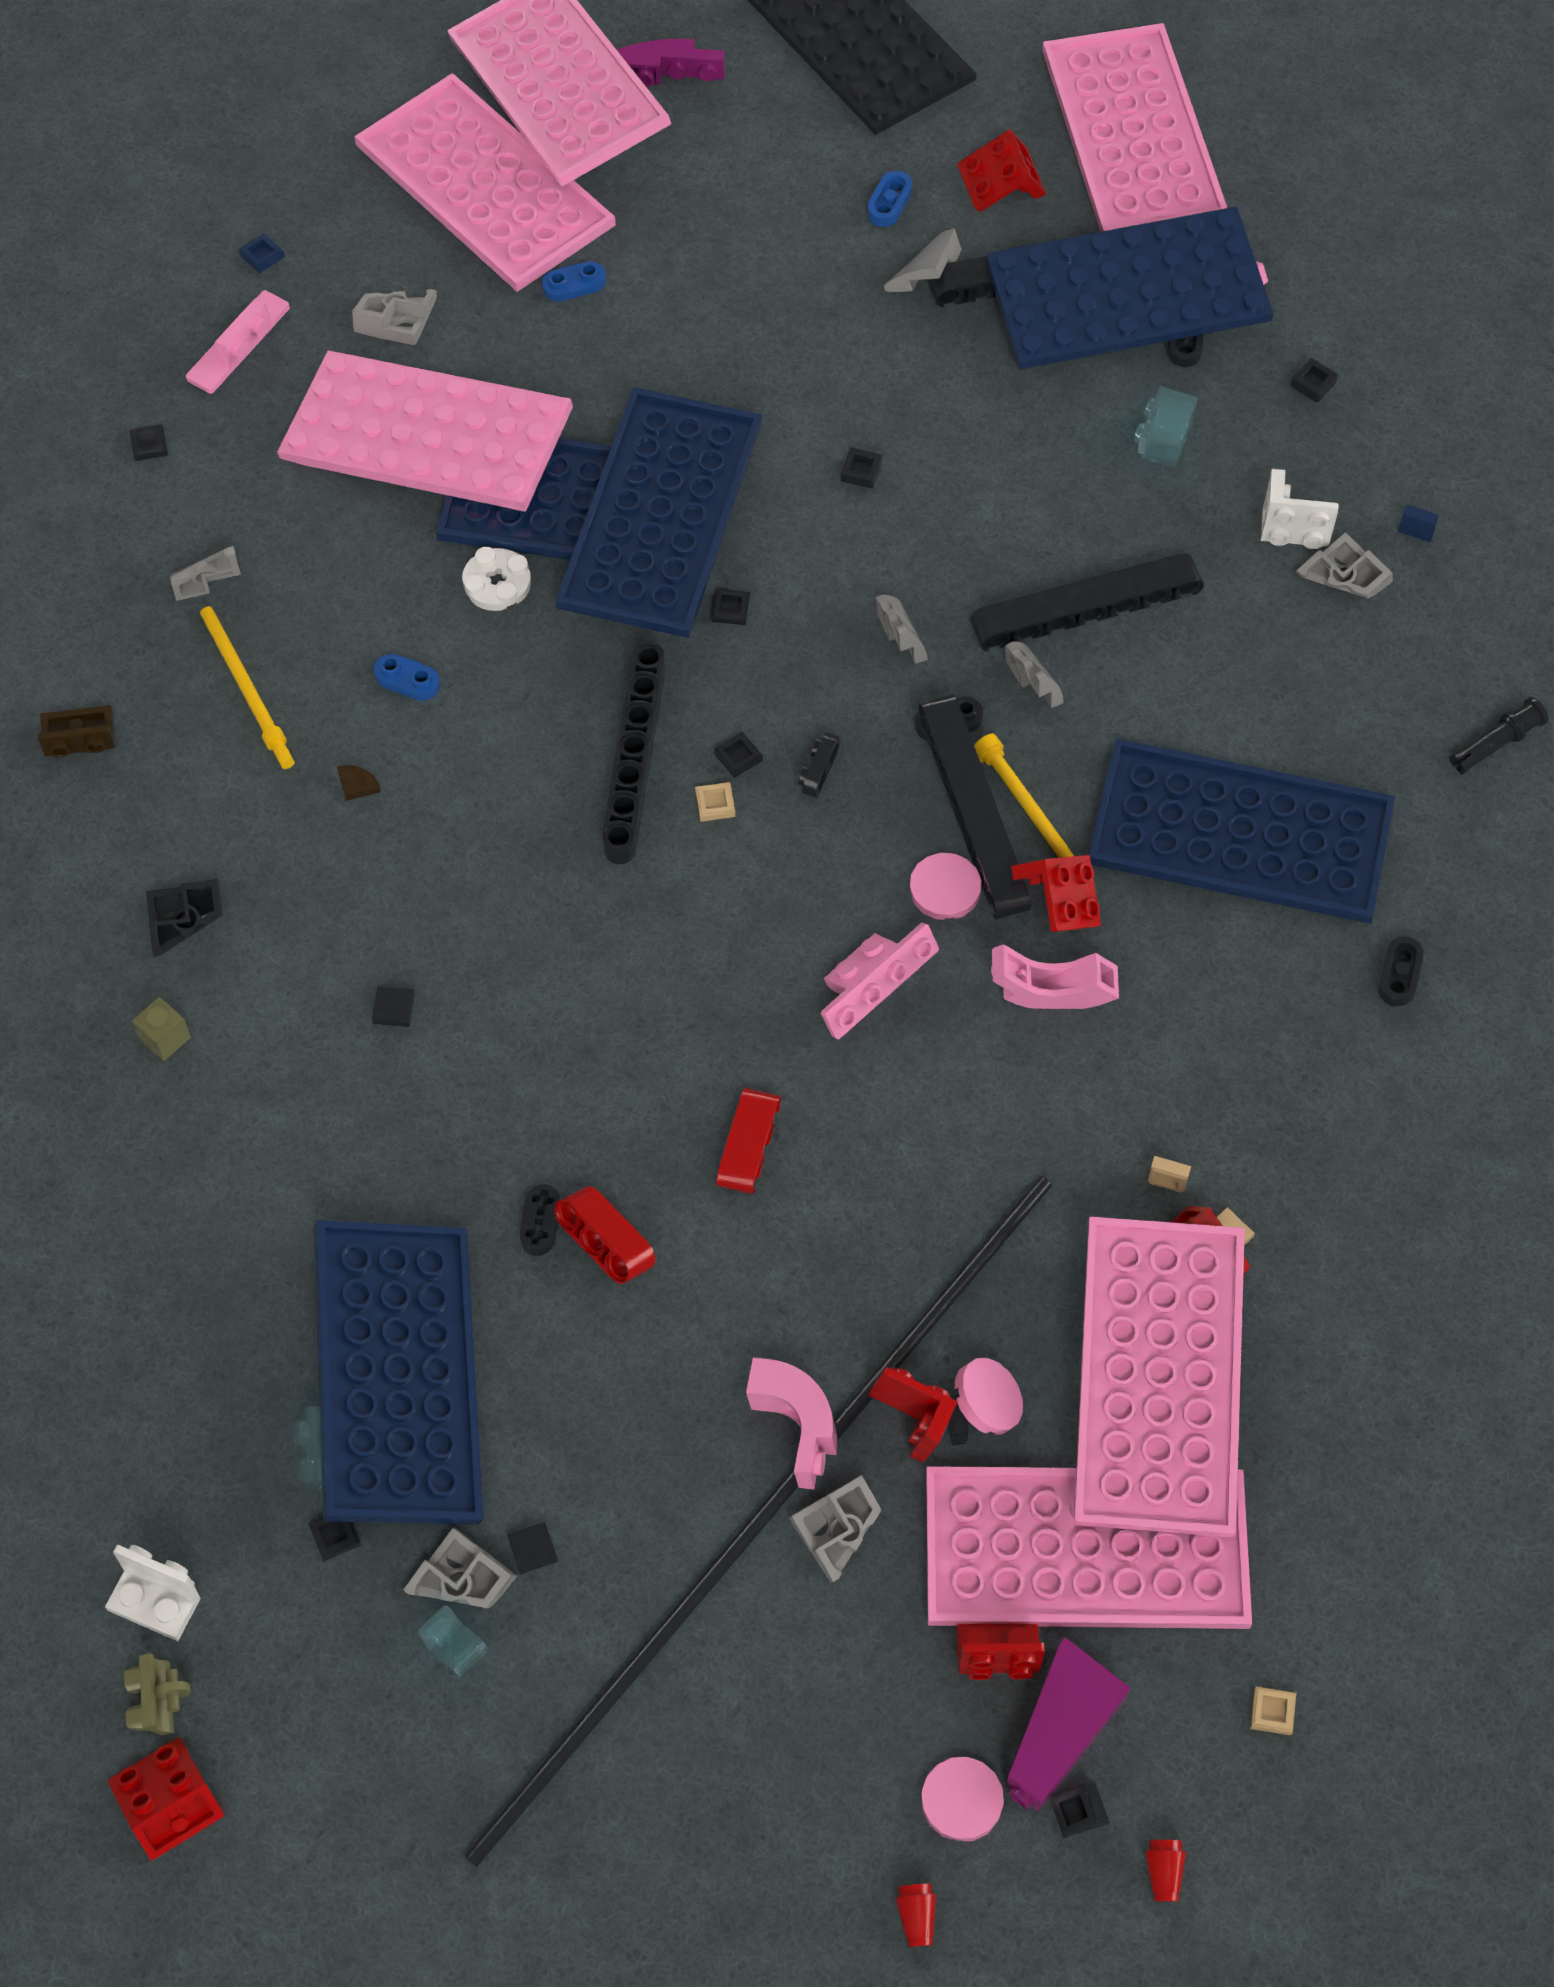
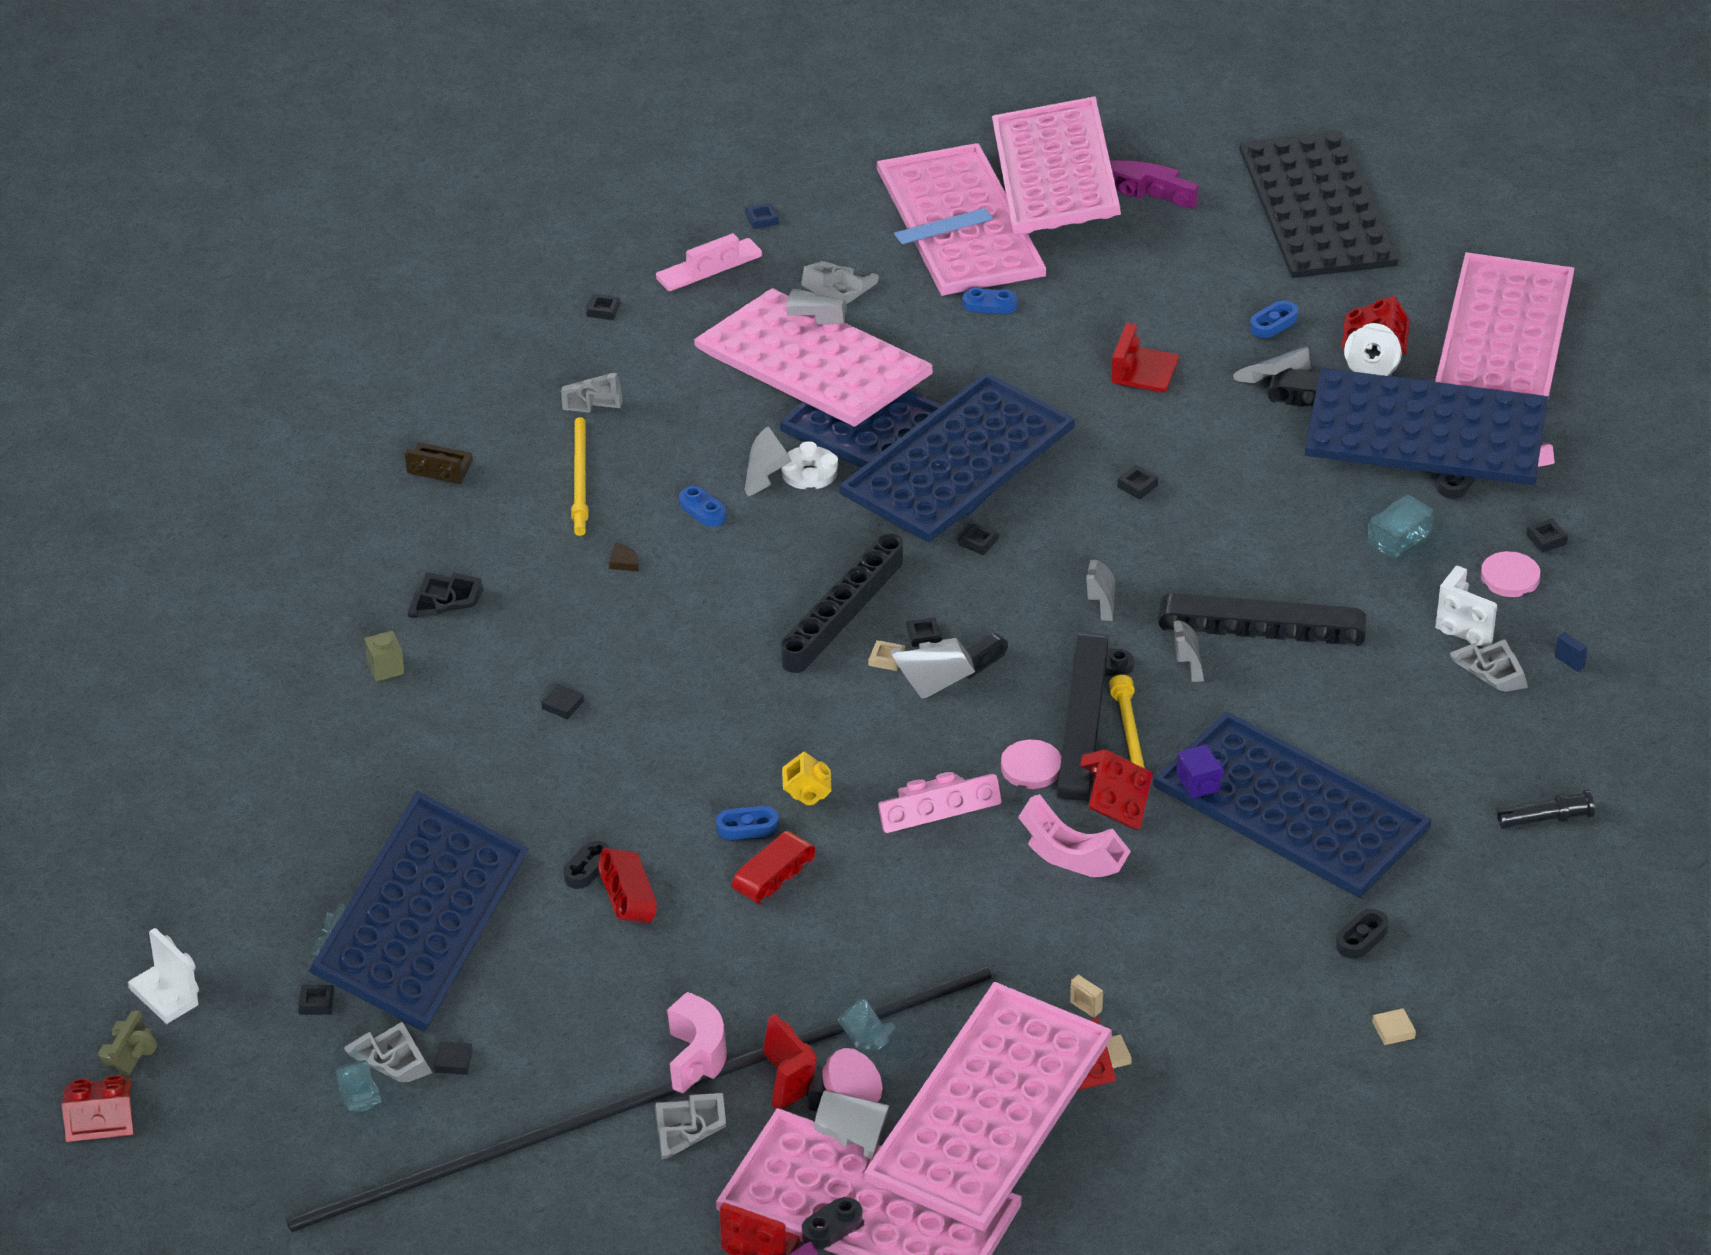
camera: 25 degrees right, 20 degrees down
(396, 364) = (825, 308): none -> light grey slope
(447, 592) = (765, 458): none -> light grey slope
(474, 200) = (943, 226): none -> medium blue sticker
(684, 1090) = (747, 822): none -> blue plate
(726, 1010) = (807, 779): none -> yellow brick
(786, 310) = (1141, 366): none -> red bracket
(788, 805) = (934, 665): none -> light grey slope
(963, 1316) = (864, 1026): none -> clear light blue bracket
(1022, 1455) = (851, 1121): none -> light grey slope
(1033, 221) = (1364, 339): none -> white plate
(1070, 1596) = (836, 1220): none -> black plate
(1139, 835) = (1199, 771): none -> dark purple brick
(1301, 442) = (1510, 574): none -> bright pink tile
(1492, 1076) = (1394, 1026): none -> tan tile

